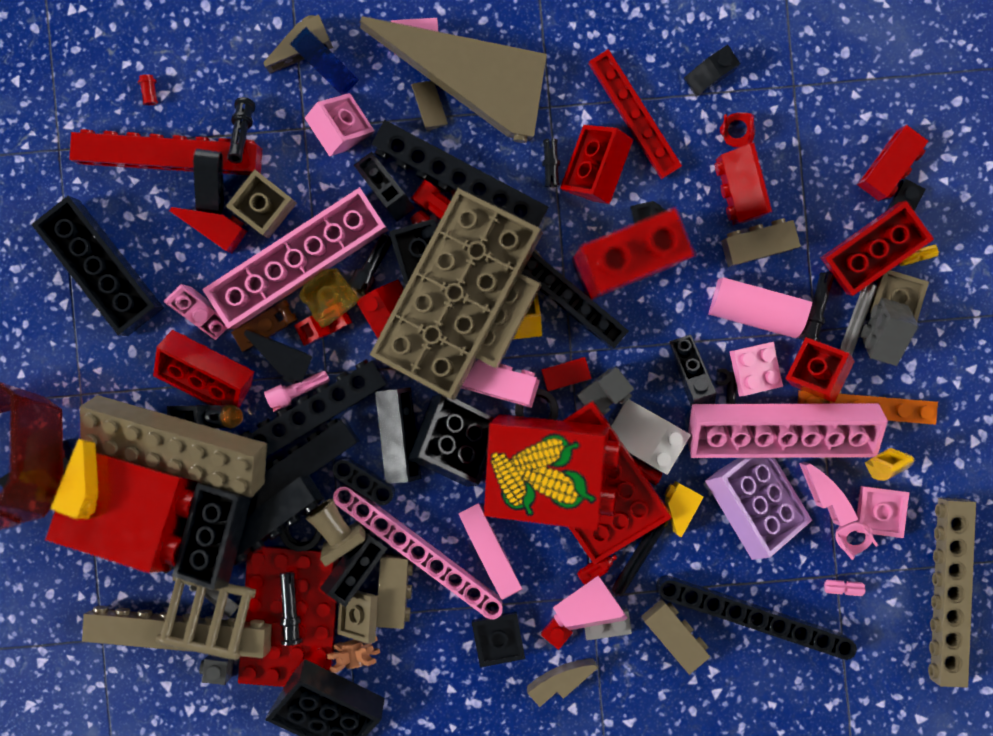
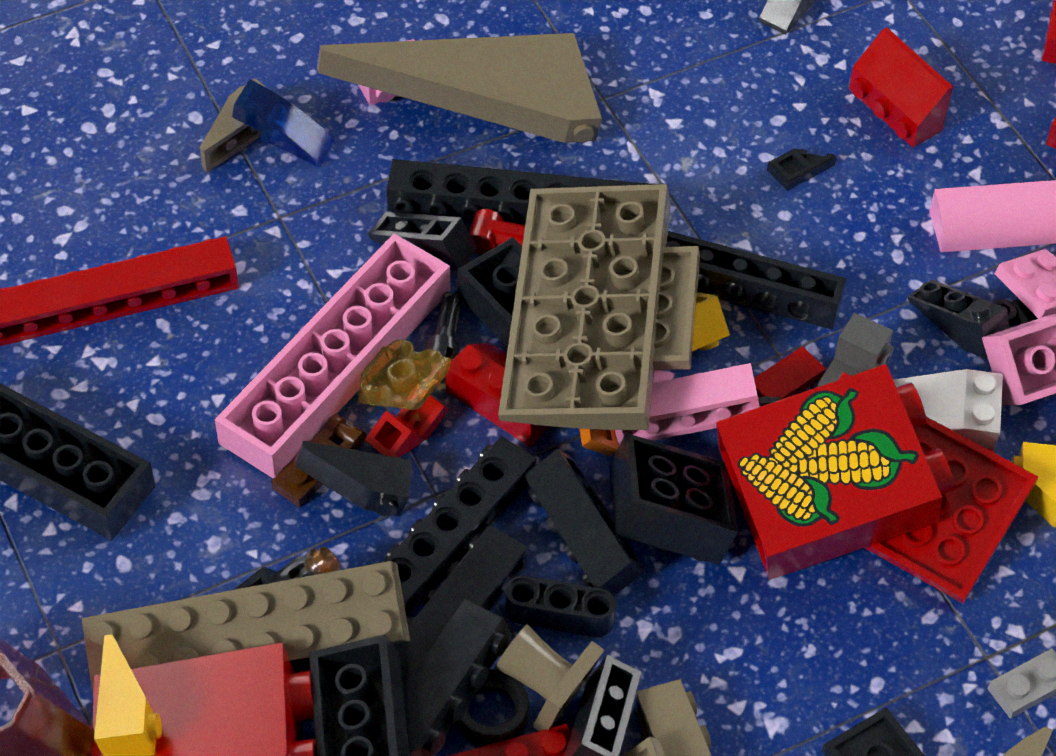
camera: 25 degrees left, 35 degrees down
(148, 89) = (39, 228): red pin -> none
(197, 310) = (212, 459): bright pink slope -> none
(201, 371) = (231, 542): red slope -> none
(208, 181) = (174, 296): black beam -> none
(218, 228) = (194, 357): red slope -> none
(240, 128) = (194, 222): black pin -> none
(261, 204) = (259, 305): dark tan brick -> none
(281, 396) = (386, 532): bright pink piece -> none
(338, 123) = (327, 191): bright pink slope -> none
(424, 562) = (711, 671): bright pink beam -> none
(429, 105) = (441, 139): dark tan slope -> none
(490, 551) = (805, 637): bright pink slope -> none
(551, 163) = (637, 150): black pin -> none
(555, 634) = (962, 722): red plate -> none
(589, 607) = (992, 652): bright pink slope -> none
(591, 571) = (970, 613): red piece -> none
(597, 163) = (698, 129): red slope -> none
(632, 254) = (803, 172): red brick -> none
(634, 114) = (720, 69): red plate -> none
(637, 560) = (1023, 571): black axle -> none
(748, 138) = (866, 31): red piece -> none
(760, 242) = (959, 147): dark tan brick -> none

